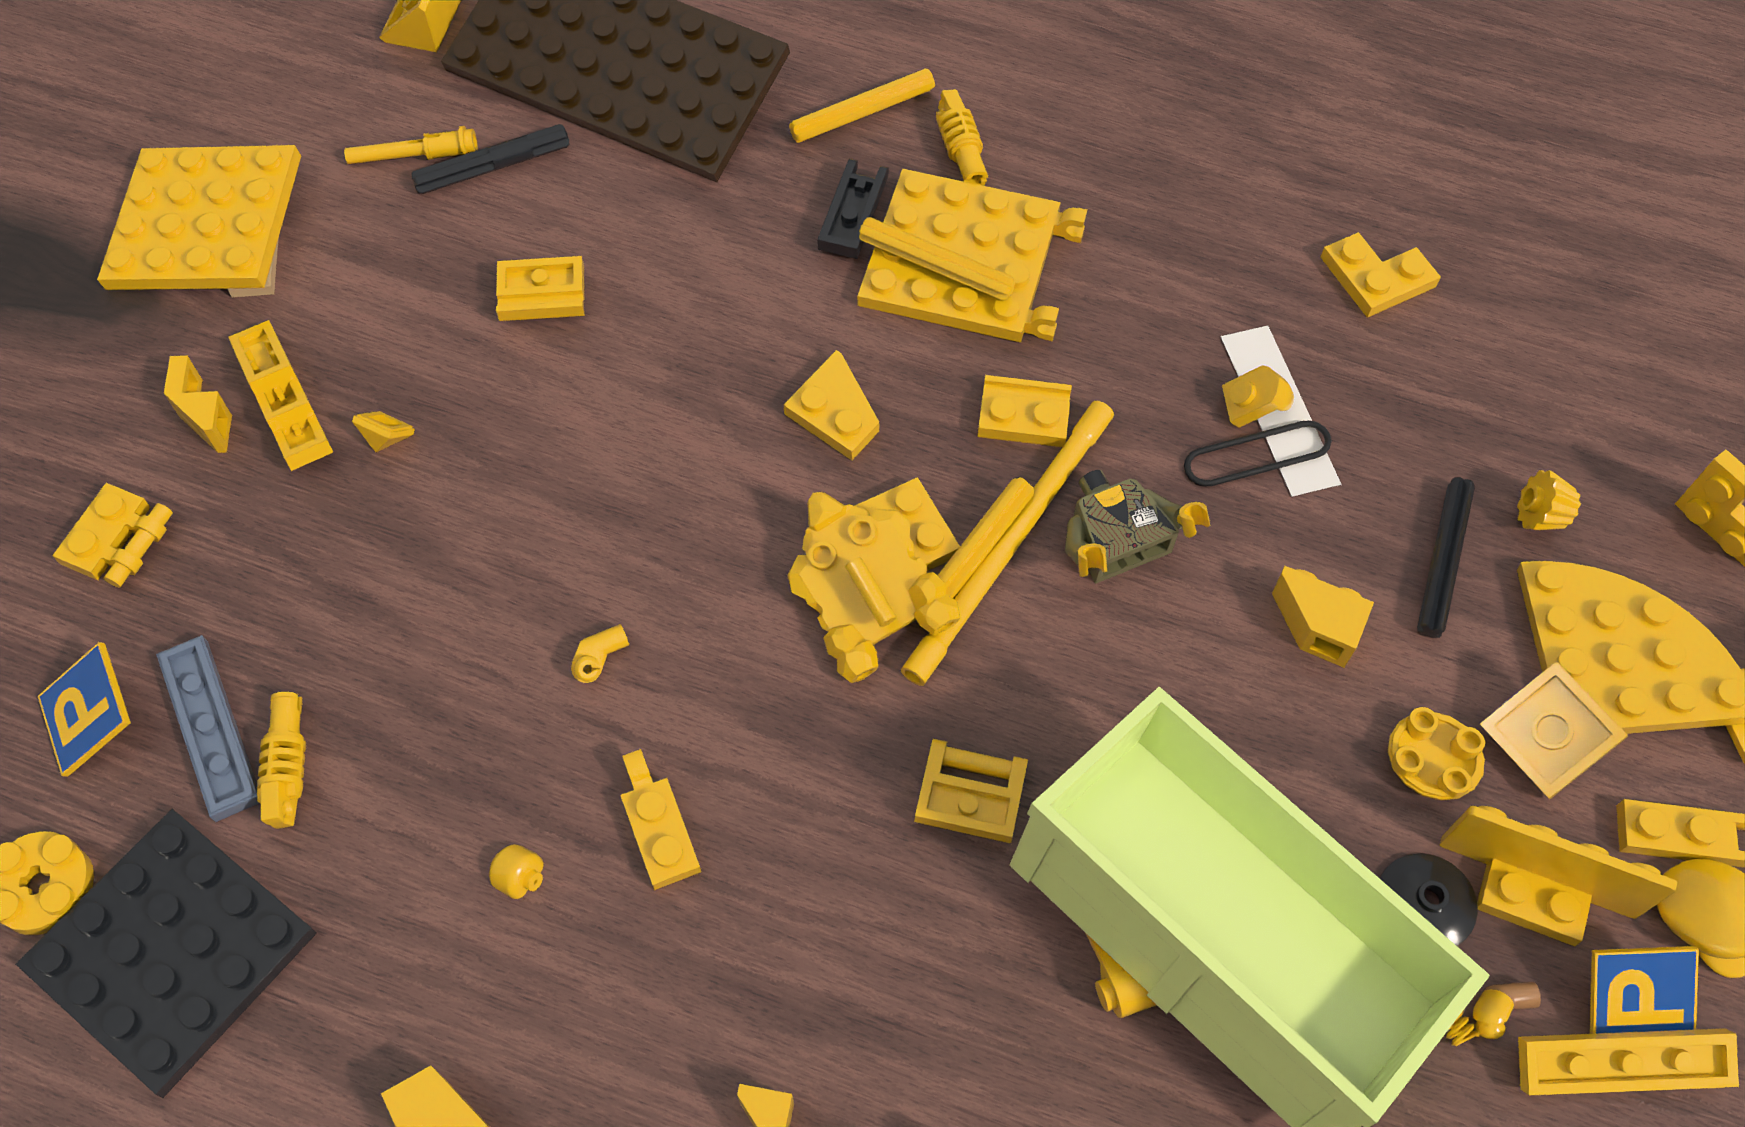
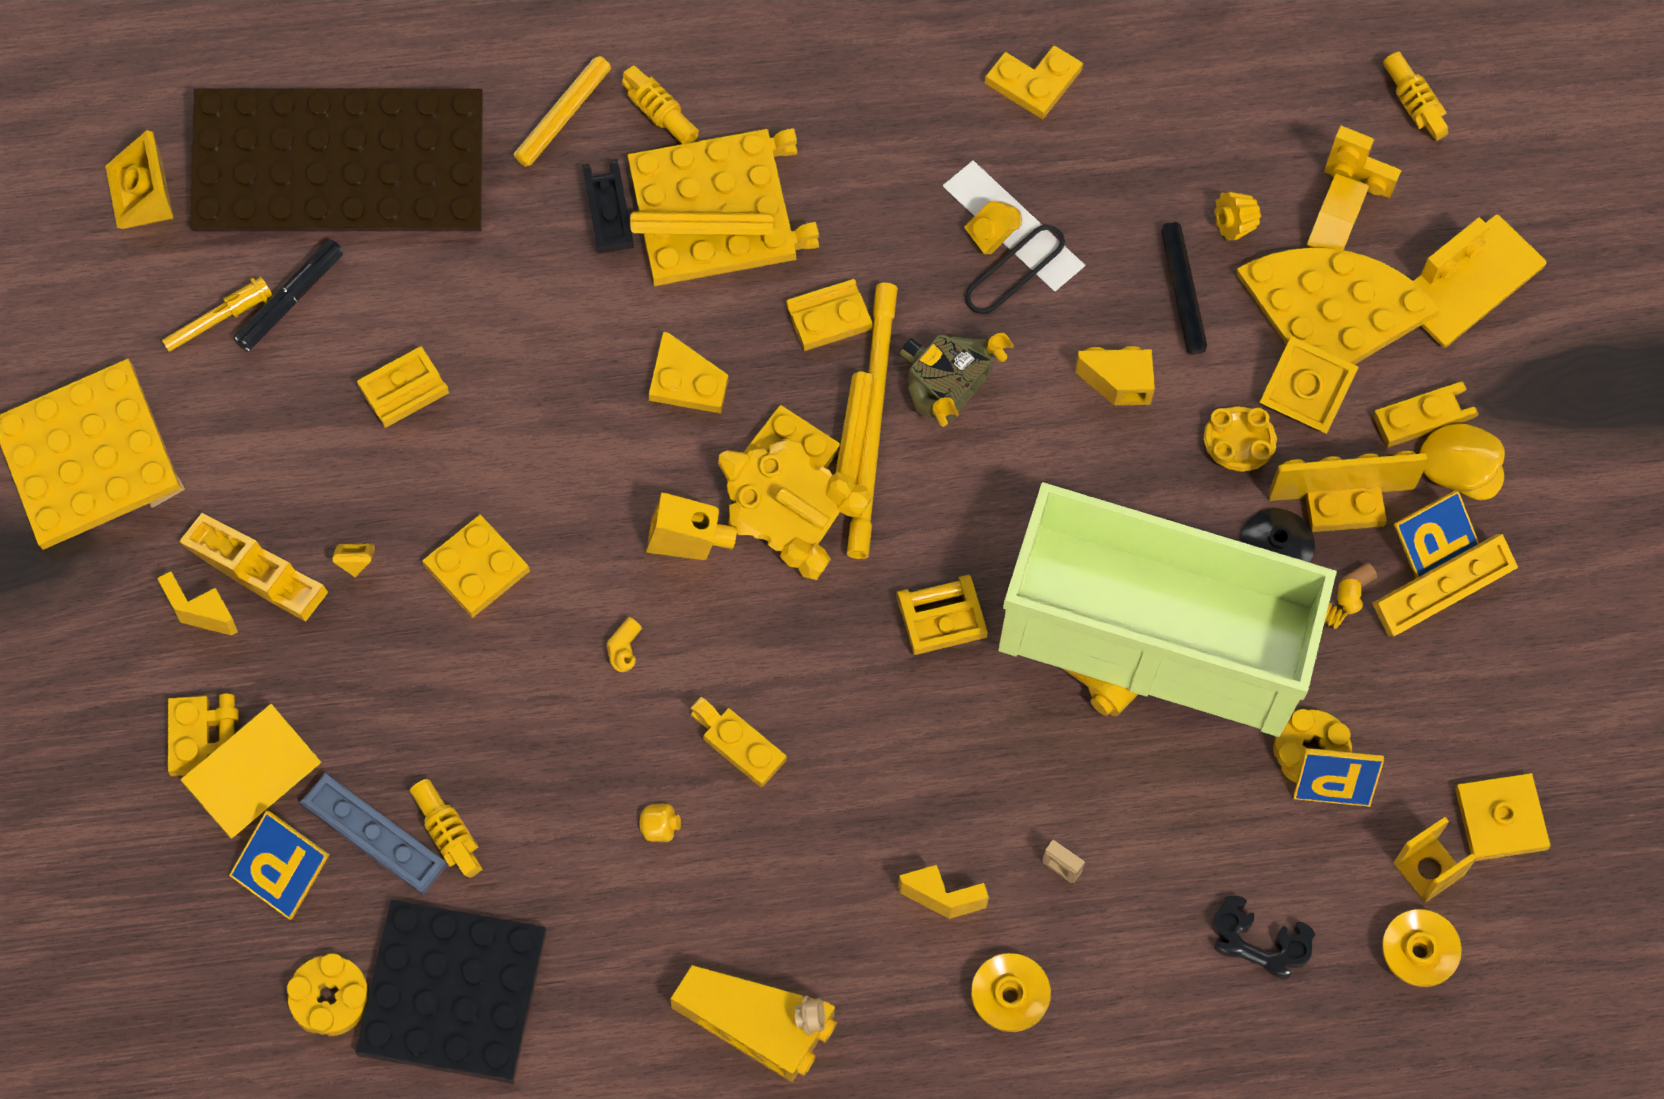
camera: 30 degrees left, 5 degrees up
(127, 594) = (250, 771): none -> yellow tile
(499, 497) = (476, 566): none -> yellow plate
(735, 556) = (687, 529): none -> yellow torso
(1675, 552) = (1338, 213): none -> yellow slope

